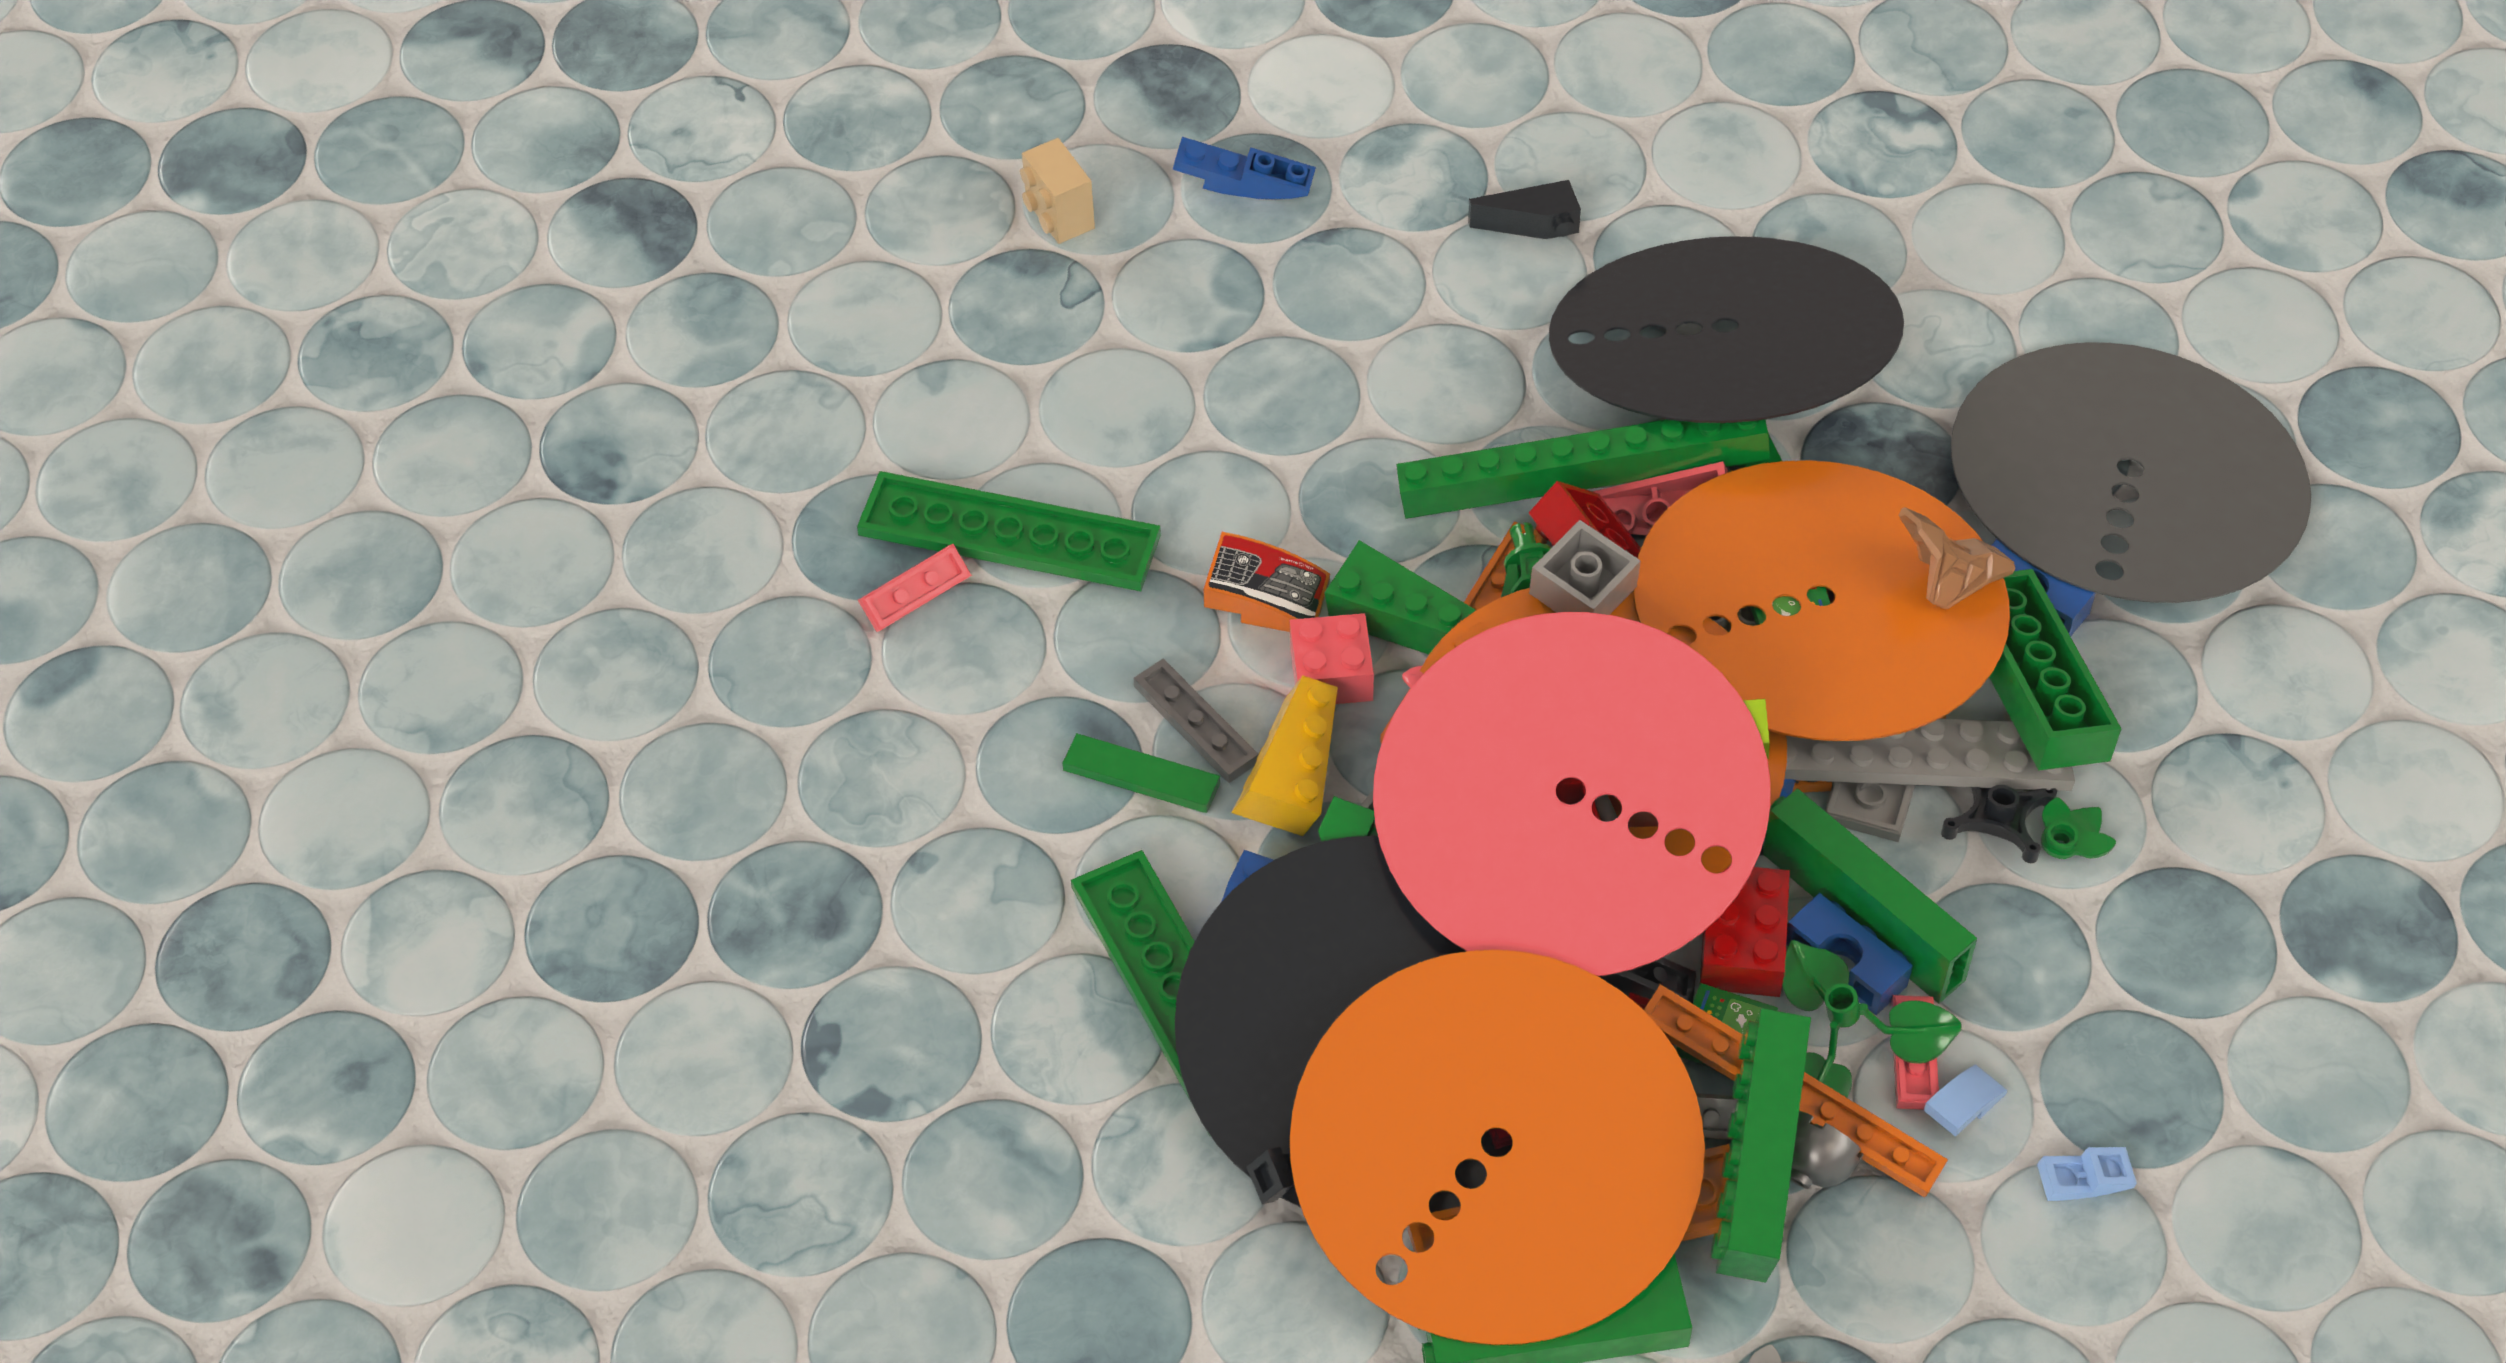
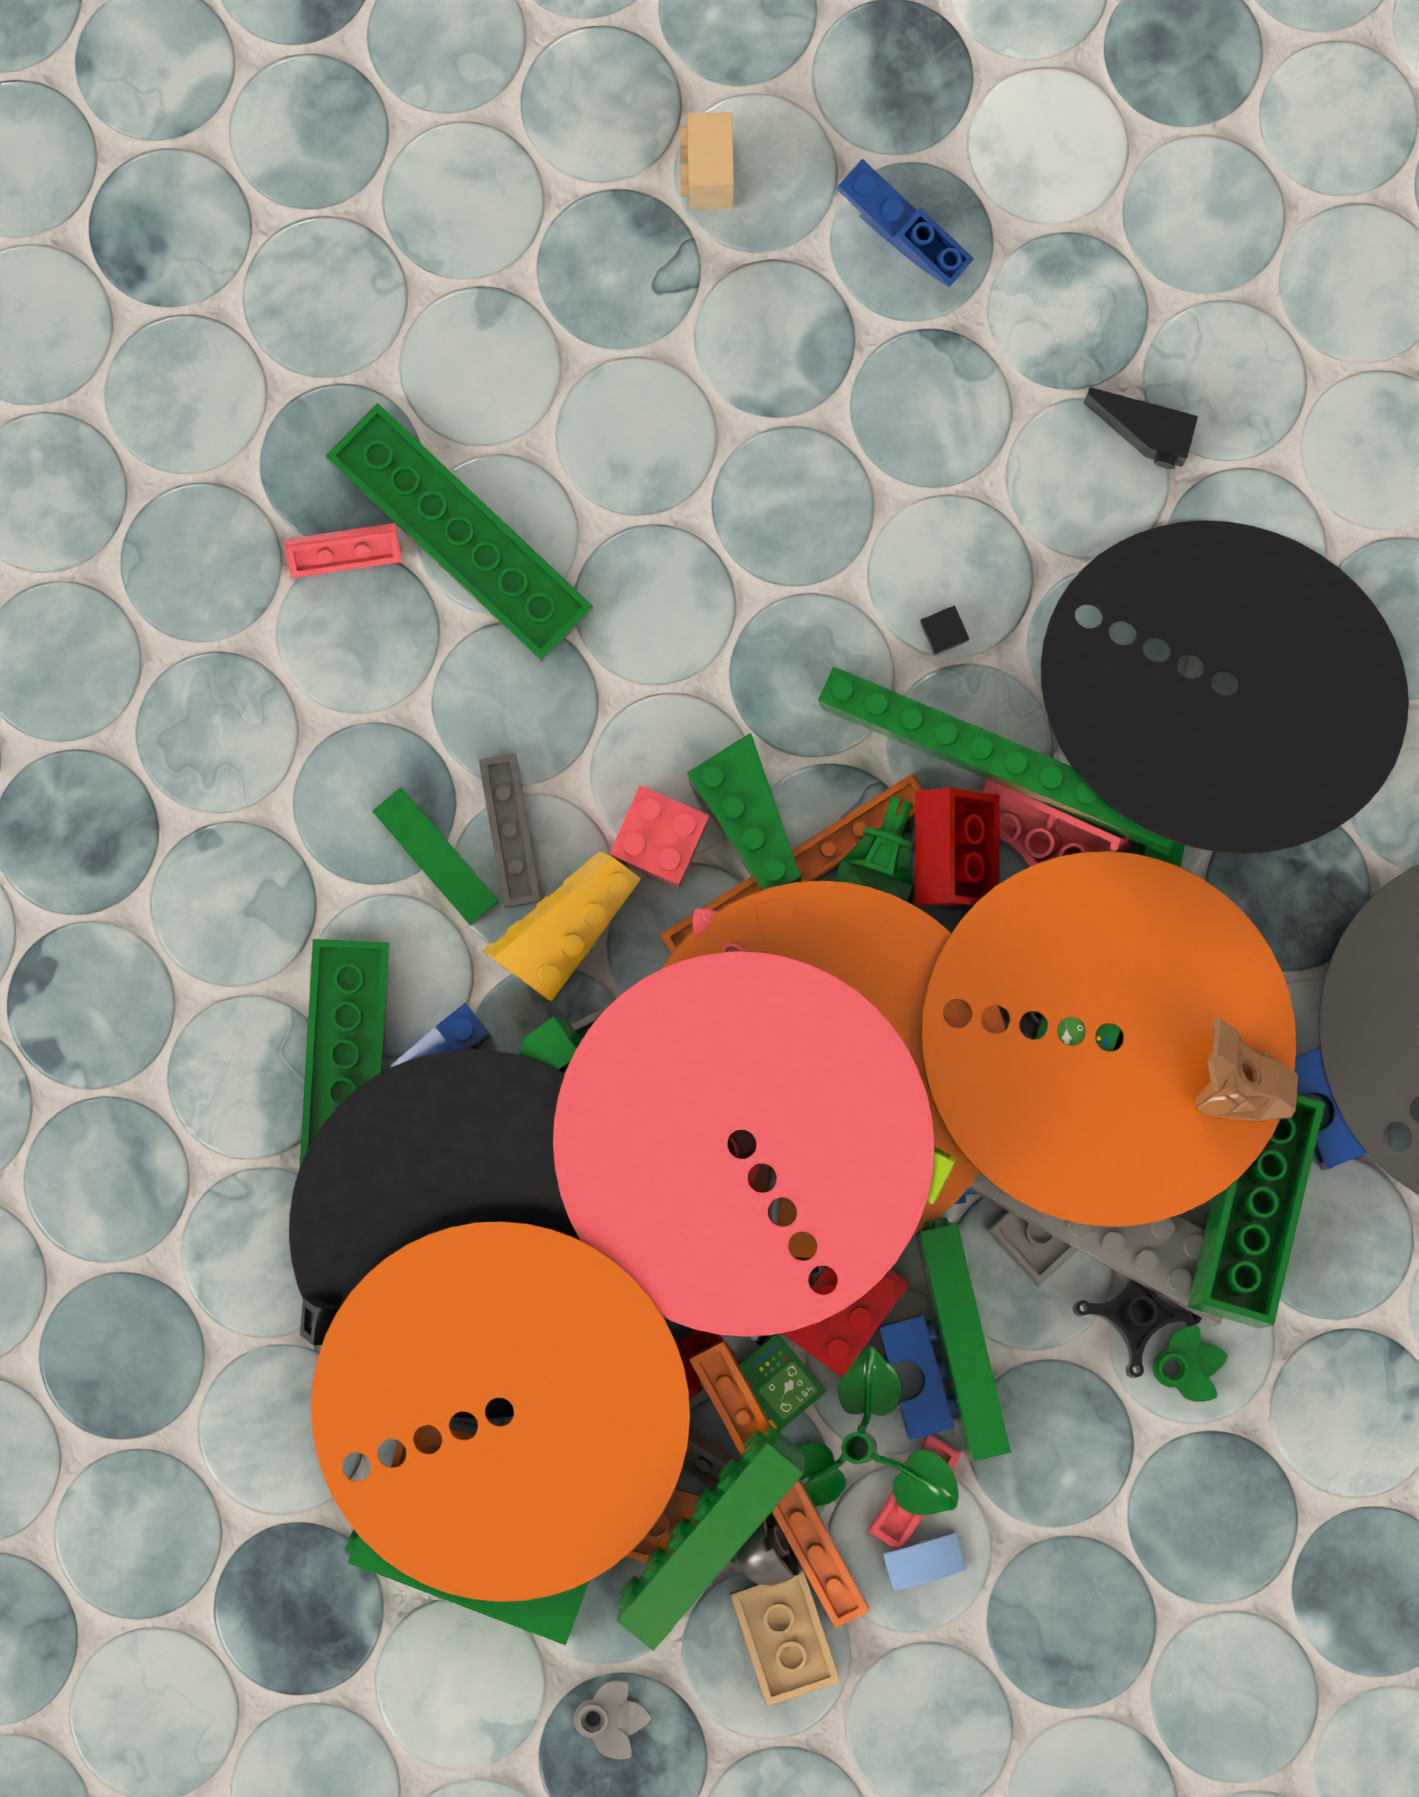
camera: 25 degrees right, 30 degrees up
(1263, 583) = (650, 723): slope -> none
(1468, 416) = (944, 630): none -> black tile
(1584, 573) = (901, 916): light grey brick -> none
(1888, 1227) = (785, 1639): none -> tan plate
(2092, 1174) = (977, 1680): light blue slope -> none

